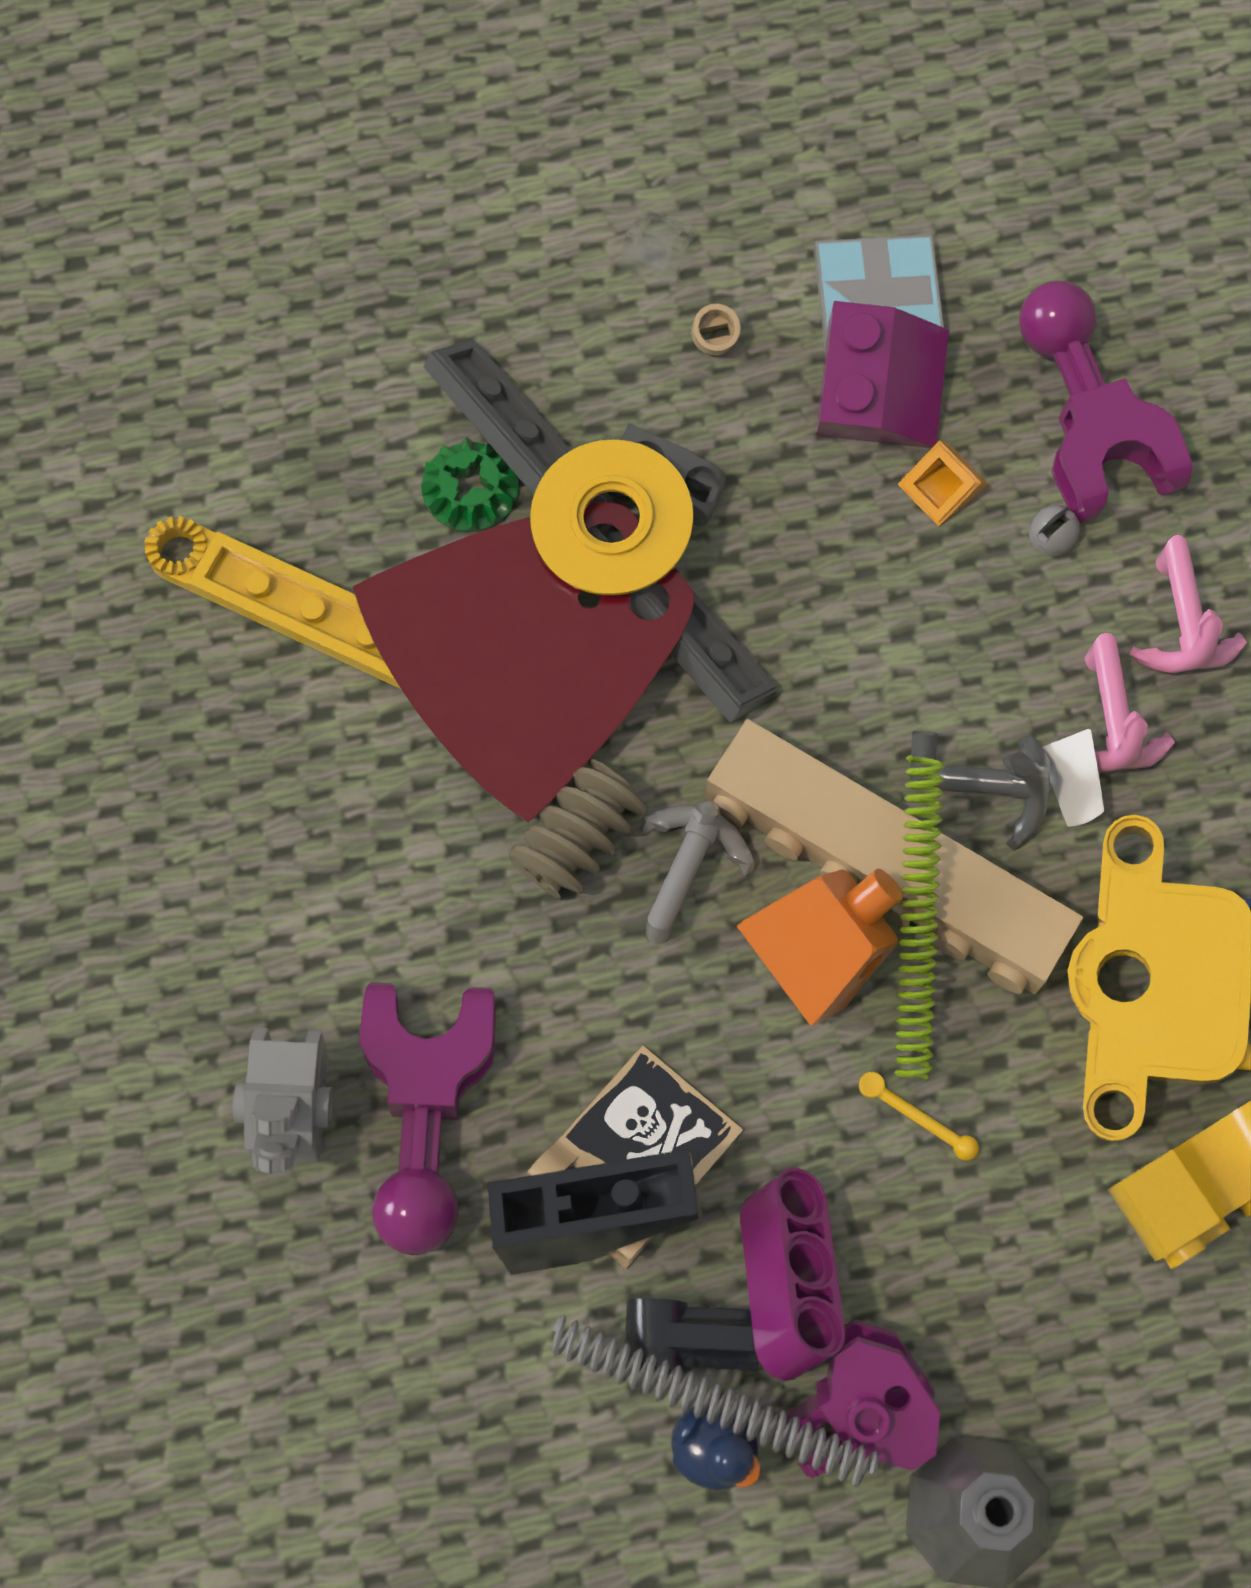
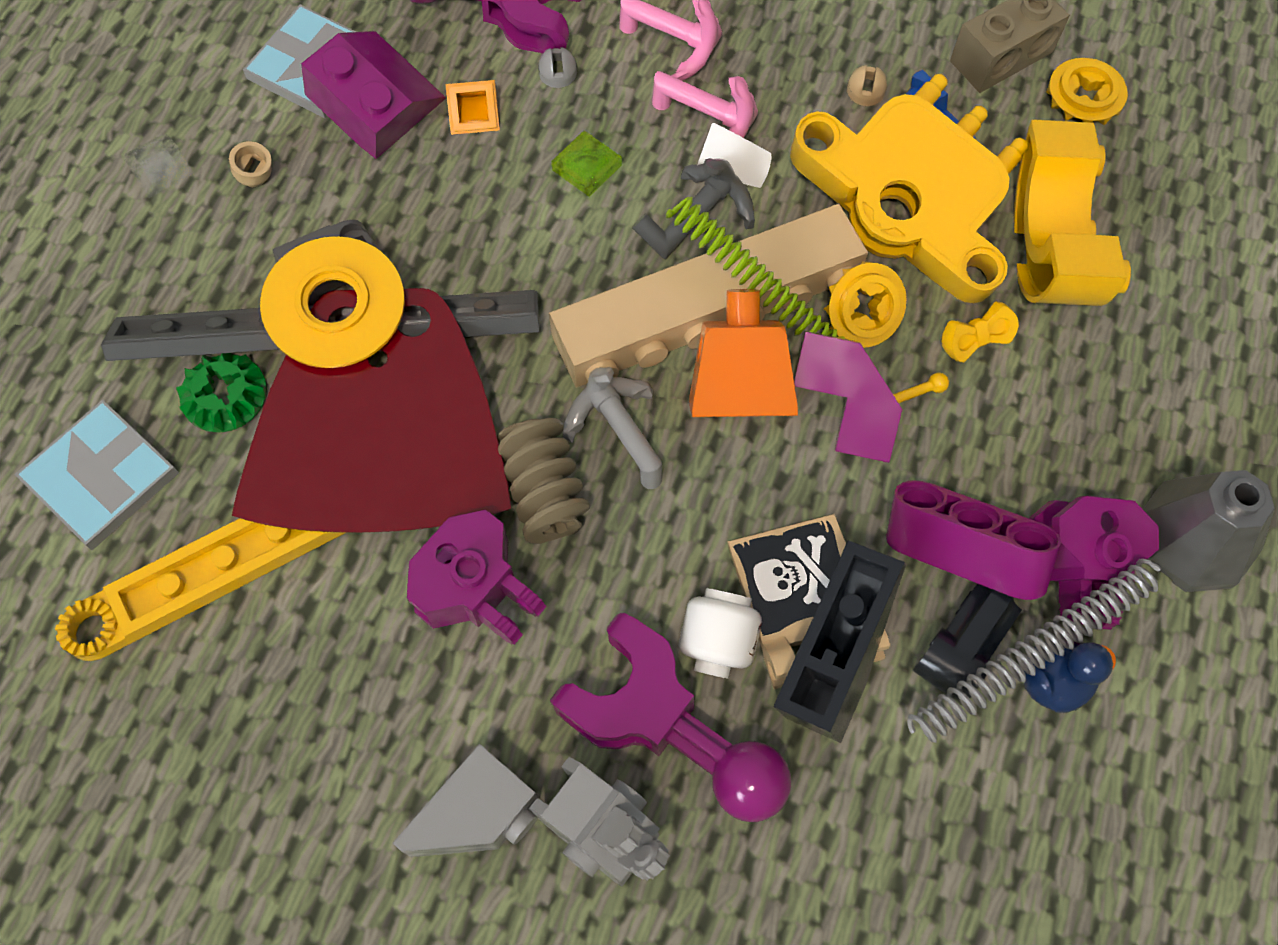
camera: 55 degrees left, 5 degrees down
(232, 982) = (472, 811): none -> light grey slope
(318, 443) = (97, 474): none -> tile
(433, 837) = (468, 577): none -> magenta hinge
(539, 1094) = (720, 632): none -> white head
(890, 1043) = (870, 408): none -> magenta tile
(961, 636) = (586, 163): none -> clear neon green tile
(966, 1028) = (885, 308): none -> yellow gear
(1071, 1167) = (996, 326): none -> yellow piece

